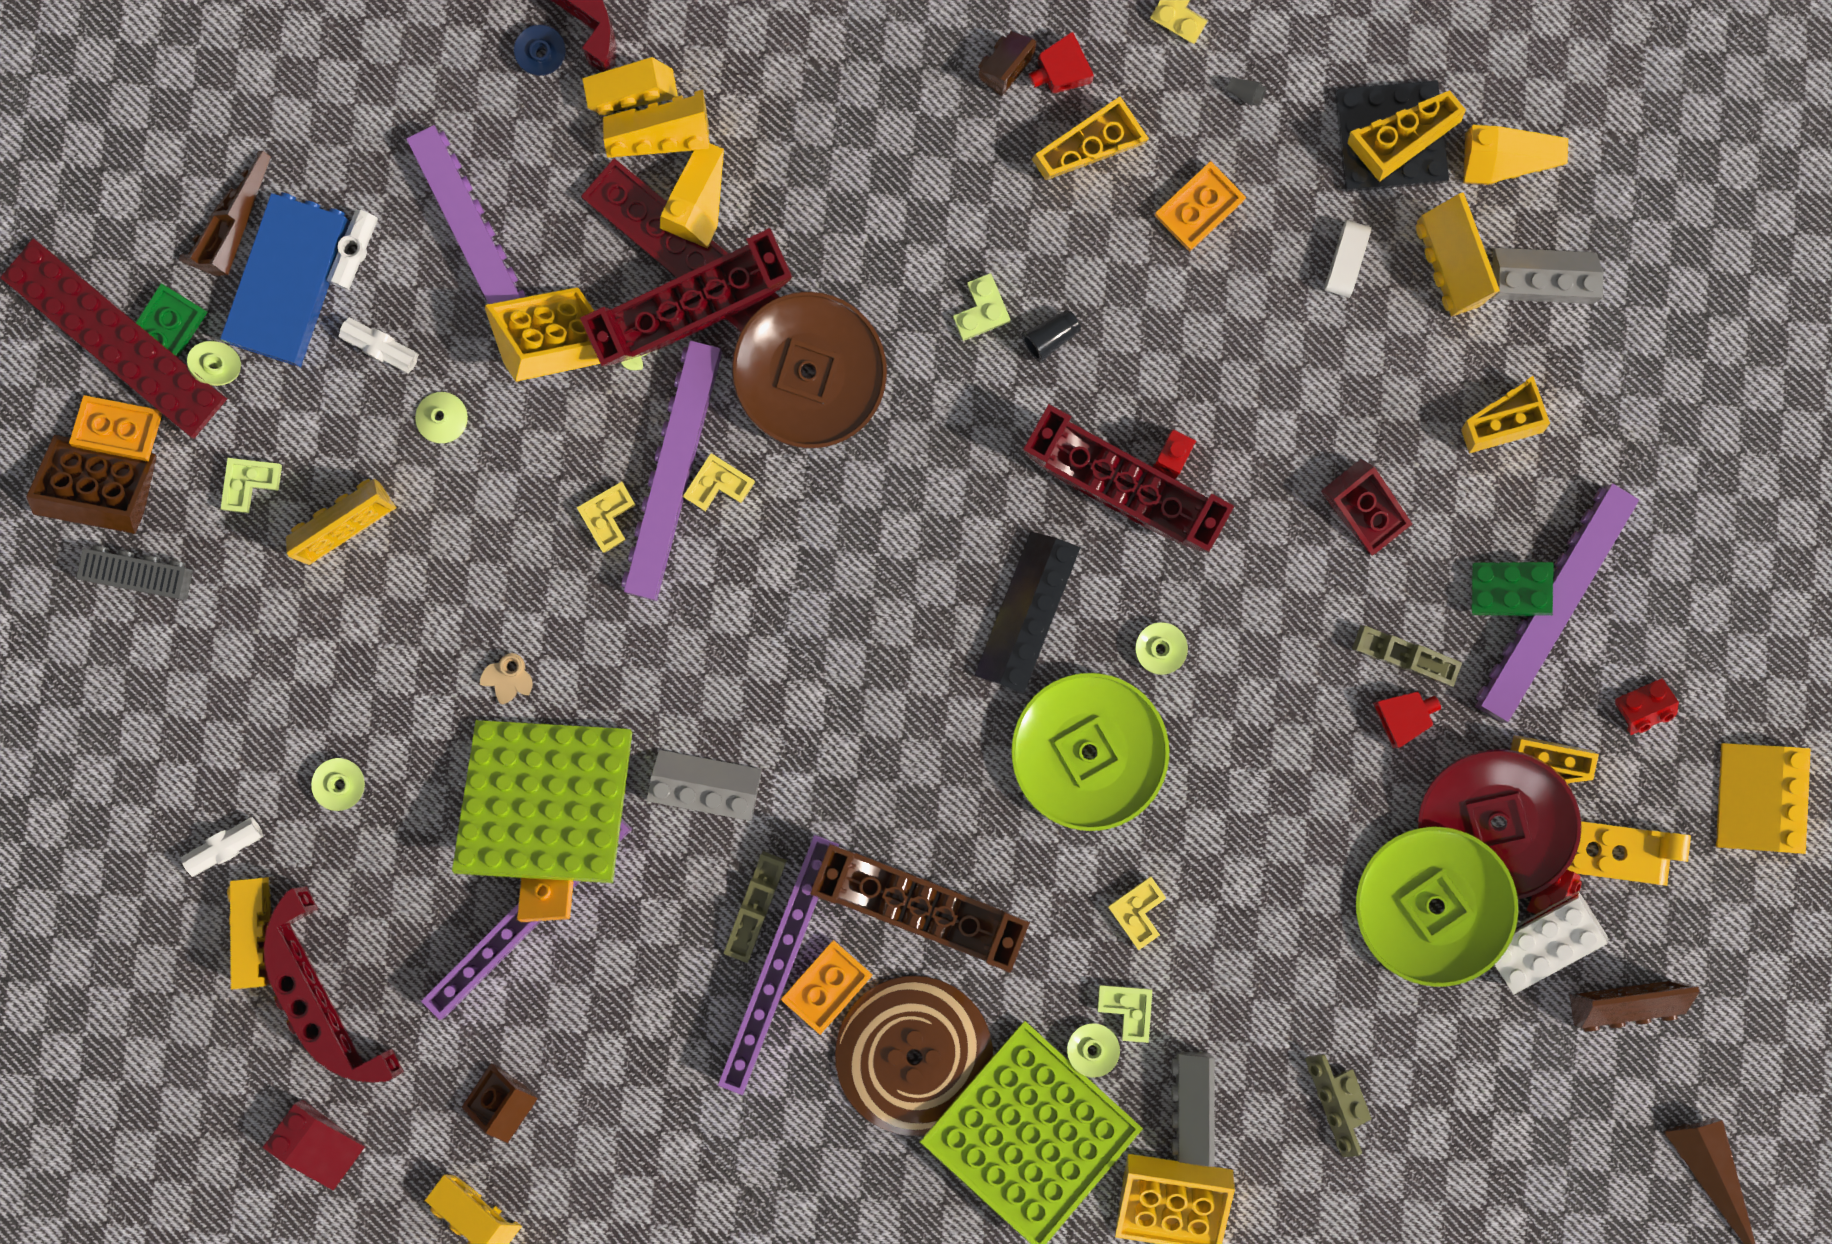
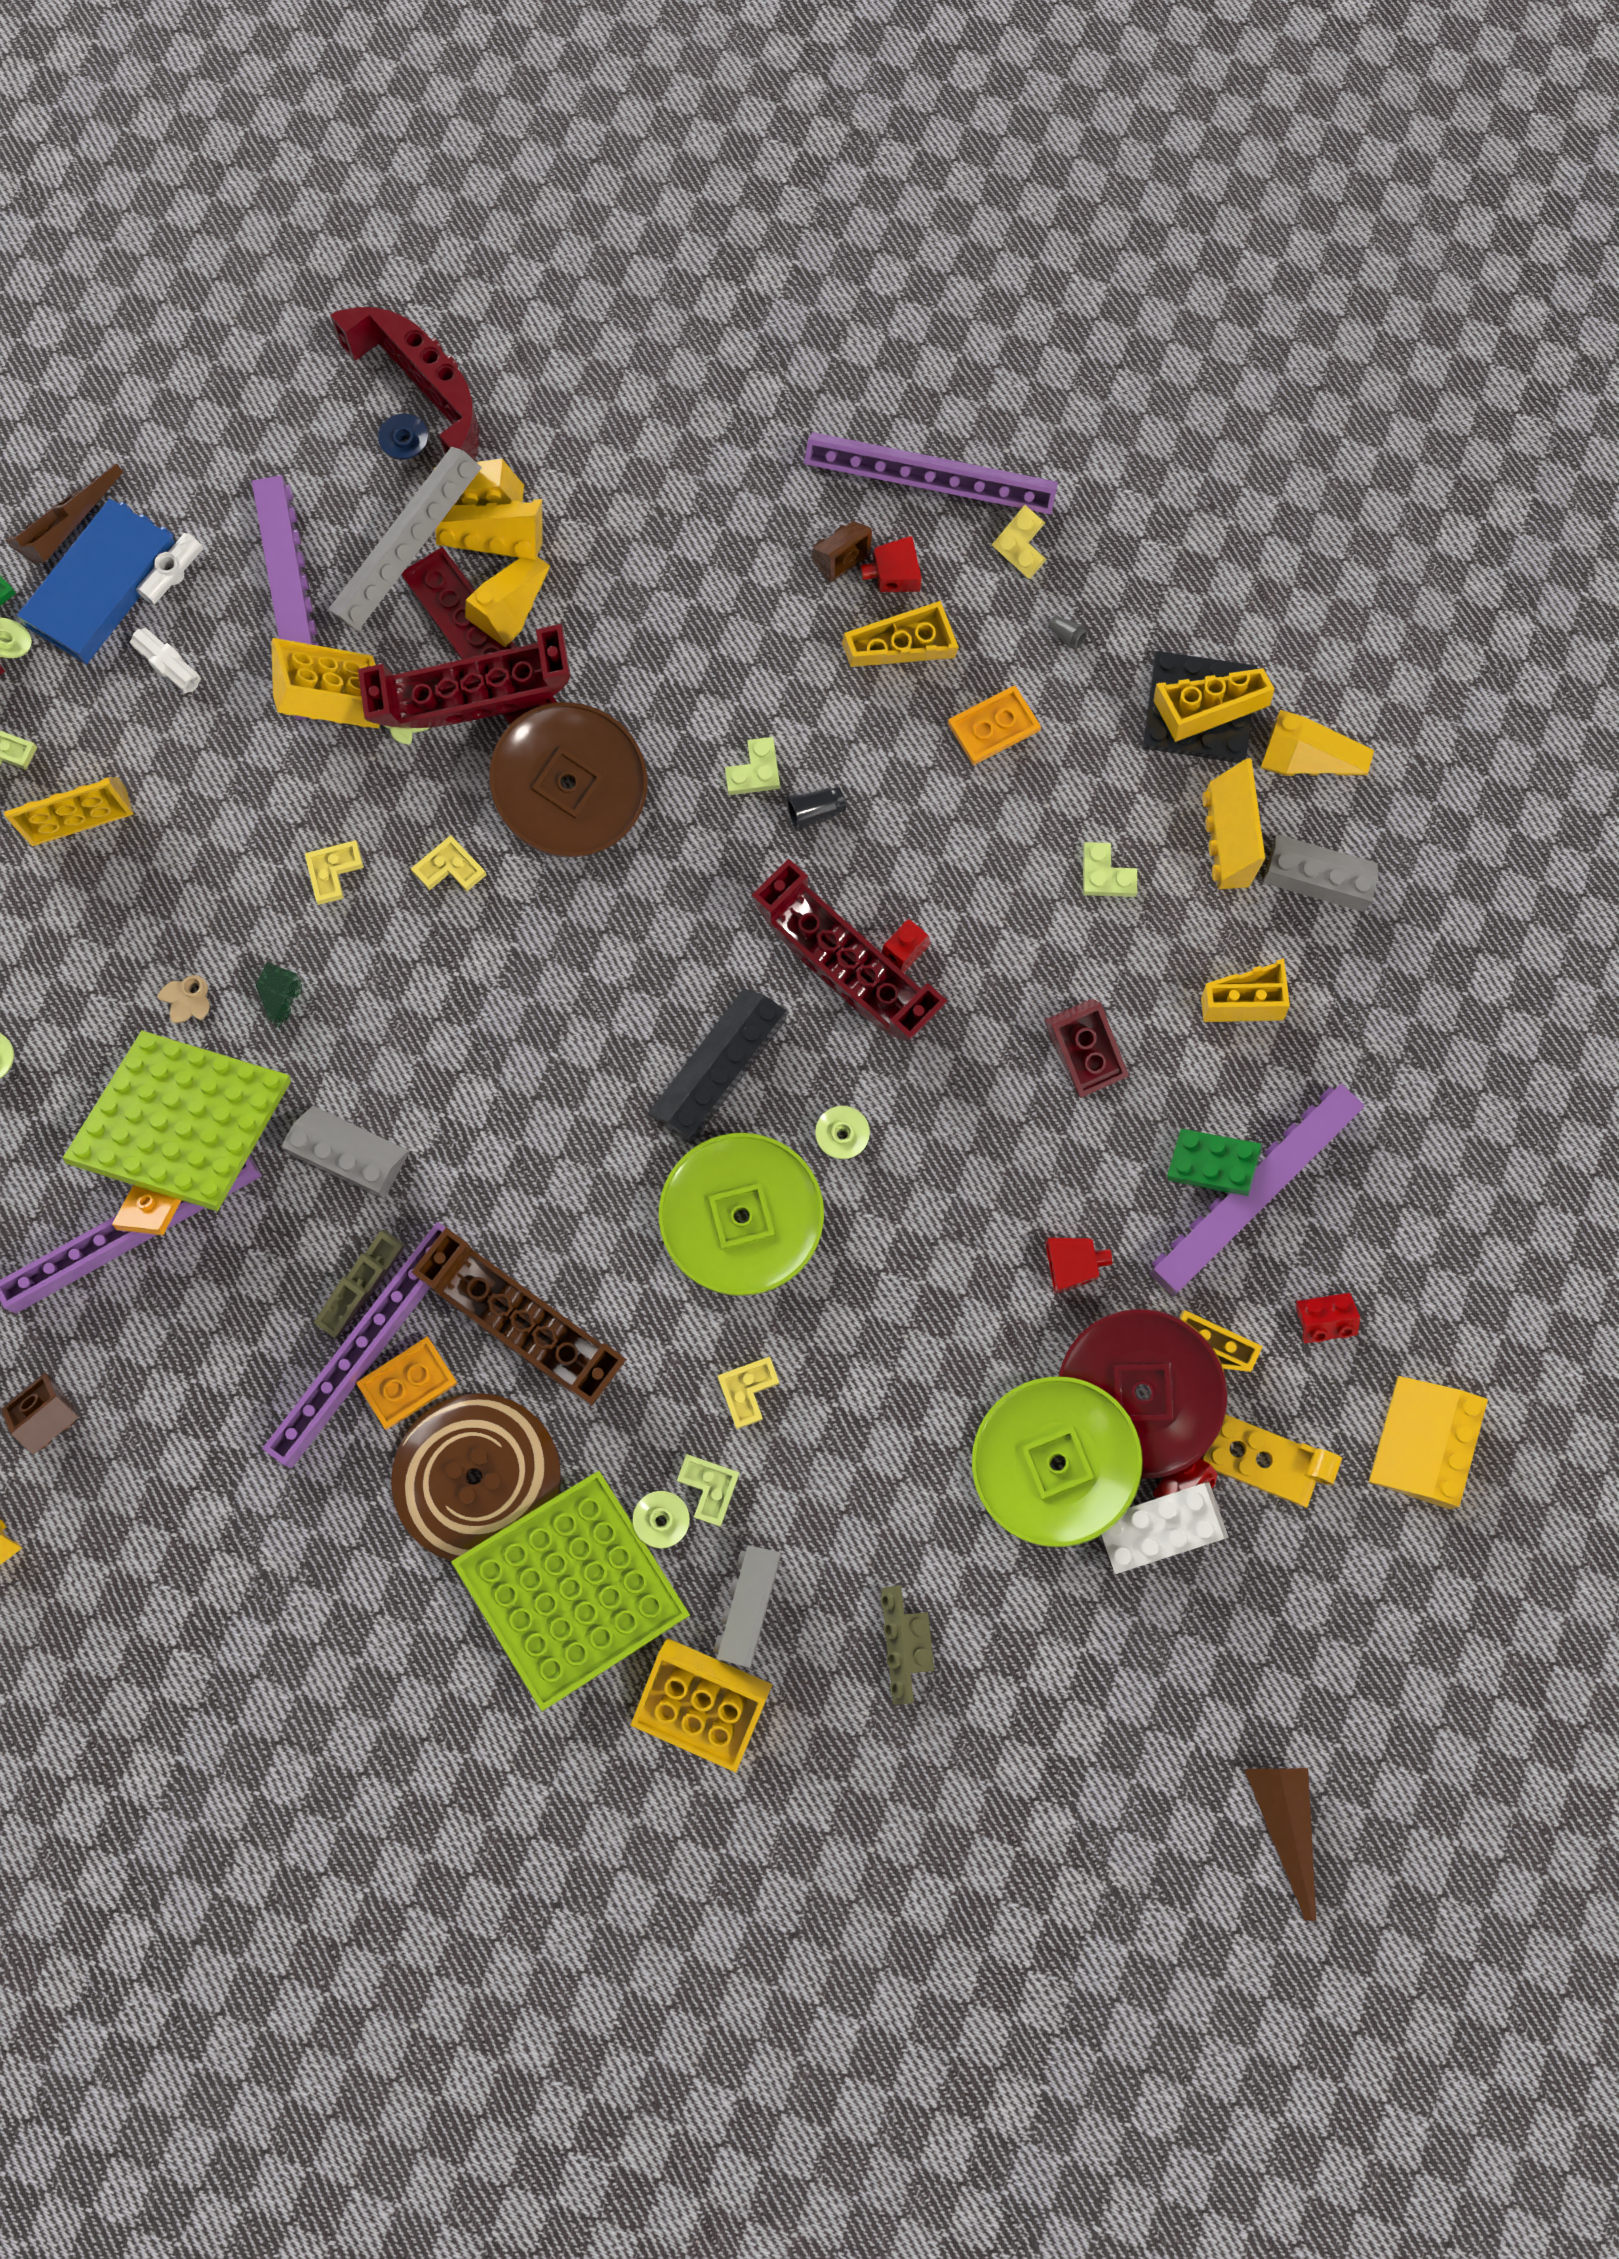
camera: 20 degrees right, 10 degrees down
(450, 426) = (209, 750): yellowish green dish -> none
(579, 163) = (405, 538): none -> light grey brick
(591, 649) = (277, 990): none -> clear green slope
(672, 471) = (407, 844): medium lavender brick -> none
(1337, 333) = (1103, 880): none -> yellowish green plate
(1347, 258) = (1126, 807): white beam -> none
(1407, 655) = (1091, 1204): olive slope -> none
(1632, 1003) = (1239, 1618): reddish brown slope -> none

